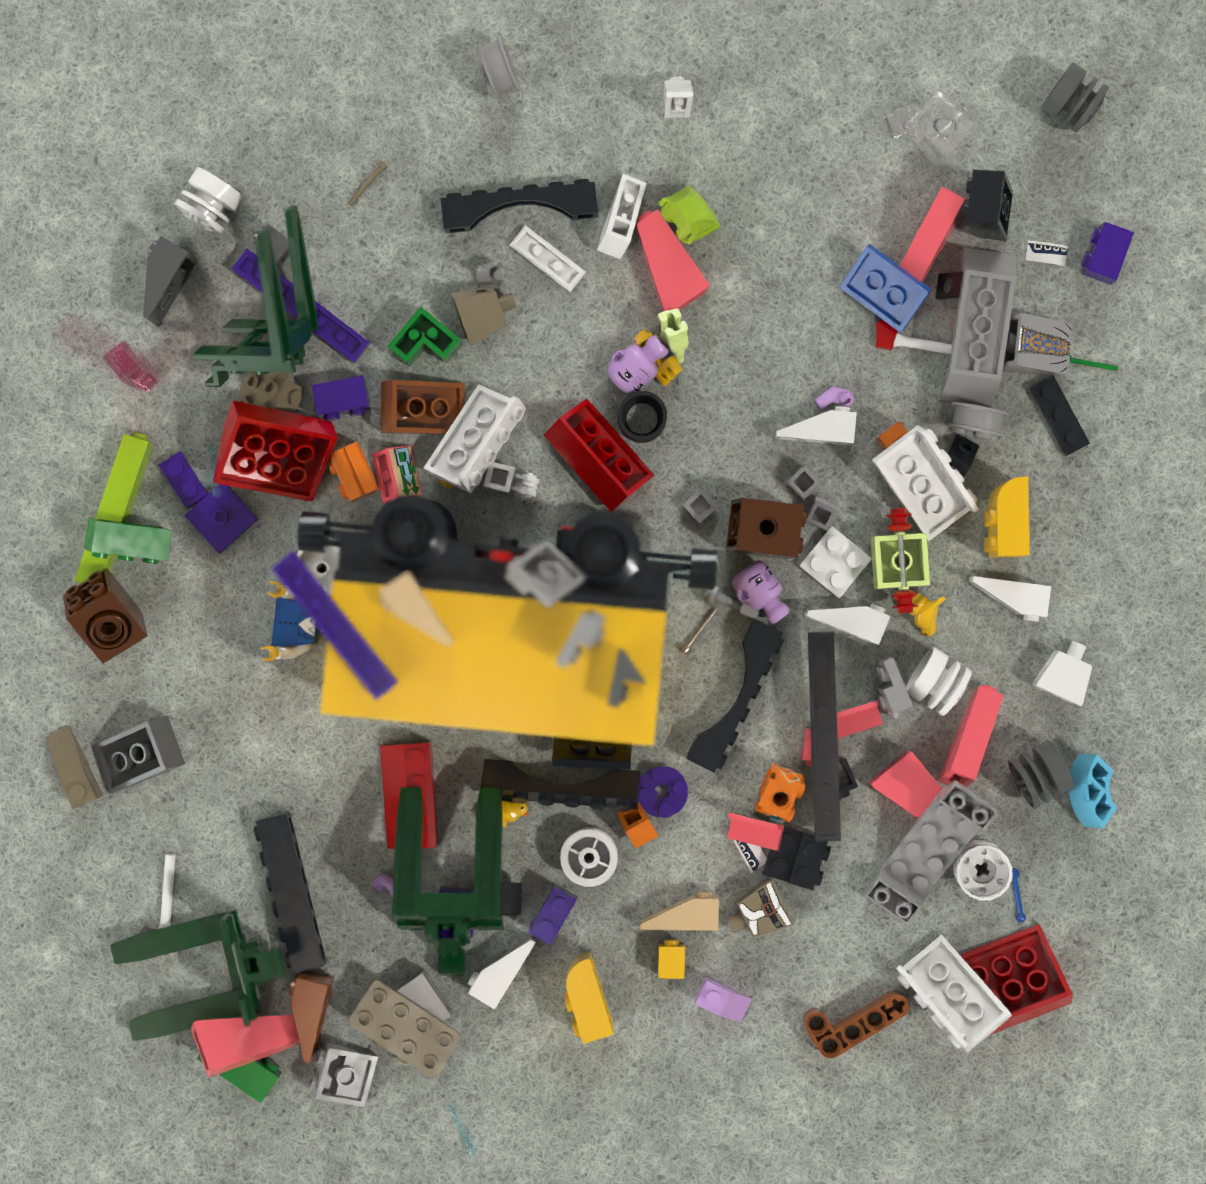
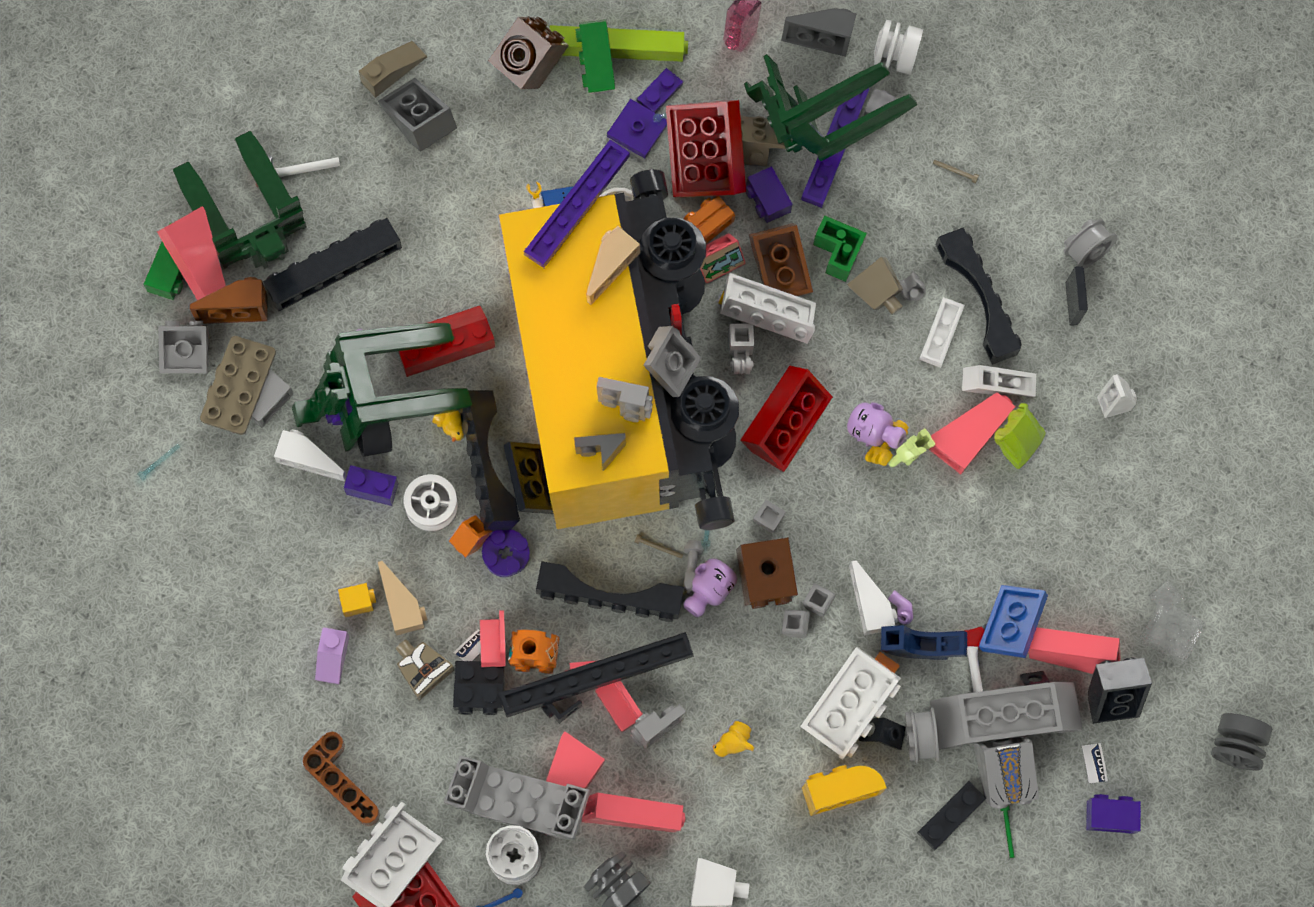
camera: 65 degrees right, 15 degrees down
(552, 101) = (1076, 295): none -> black tile
(587, 1000) = (304, 532): yellow brick -> none
(645, 398) = (838, 429): black piece -> none
(835, 562) = (755, 649): white plate -> none
(857, 621) = (708, 682): white slope -> none
(881, 388) = (923, 645): none -> dark blue arch
(900, 560) = (774, 701): yellowish green brick -> none
(943, 684) = (676, 763): white wheel -> none
(1019, 597) = (775, 825): white slope -> none

